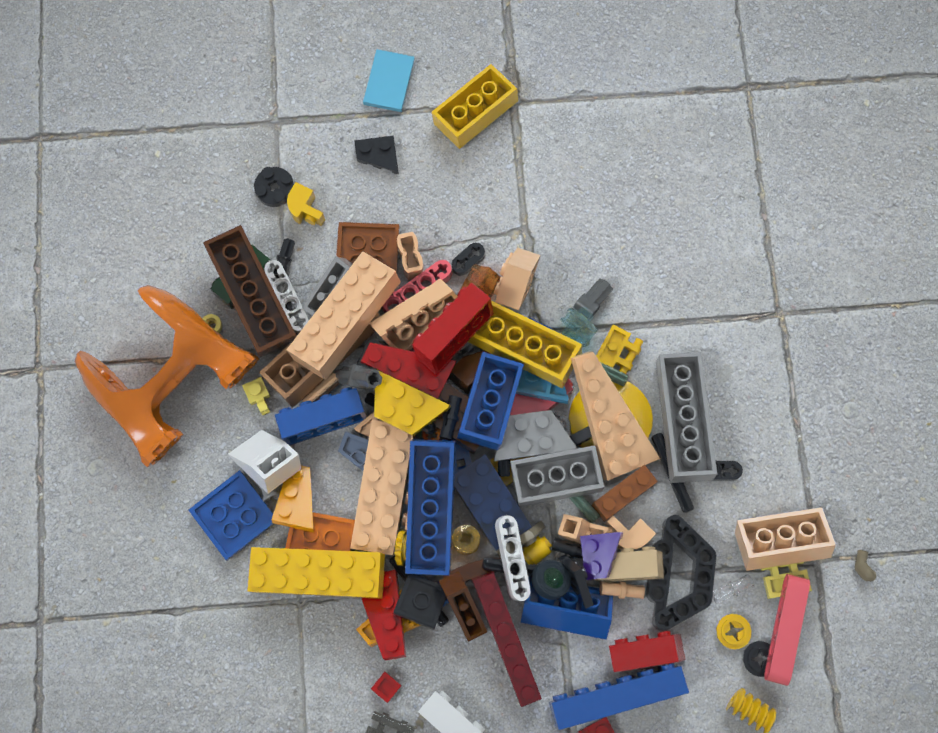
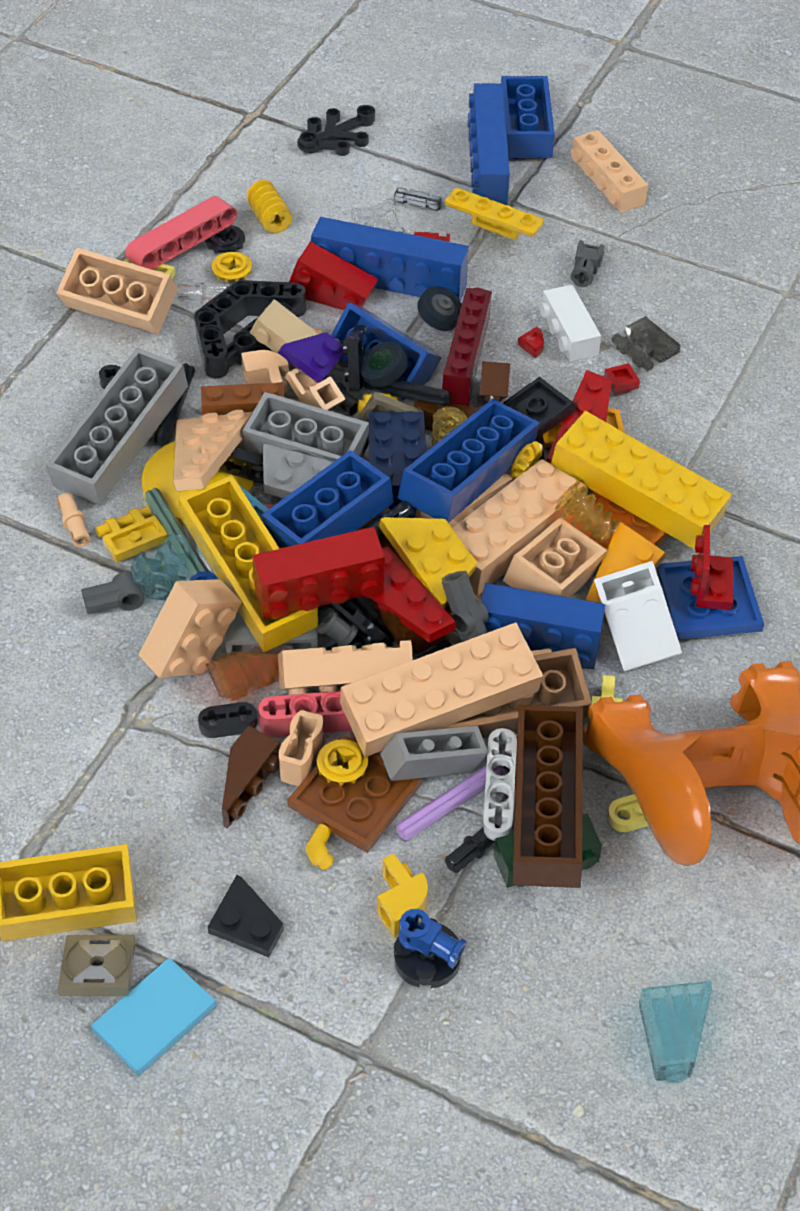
camera: 150 degrees left, 25 degrees down
(125, 215) = (674, 1026): none -> clear light blue slope
(232, 521) = (713, 576): none -> red bracket
(271, 181) = (429, 937): none -> blue connector
(316, 273) = (444, 804): none -> lavender axle
(333, 515) = (587, 513): none -> clear yellow piece
(336, 468) = (555, 561): none -> light nougat brick
(364, 207) = (316, 848): none -> yellow arm
(380, 249) = (347, 751): none -> yellow gear
(422, 89) = (110, 978): none -> dark tan piece
(434, 230) = (249, 765): none -> reddish brown slope
(471, 691) = (532, 342): none -> red tile
(516, 557) = (411, 387): white beam -> none
(553, 676) = (439, 308): none -> black wheel
(660, 338) = (73, 520): none -> light nougat pin
(863, 568) = (61, 254): dark tan arm -> none

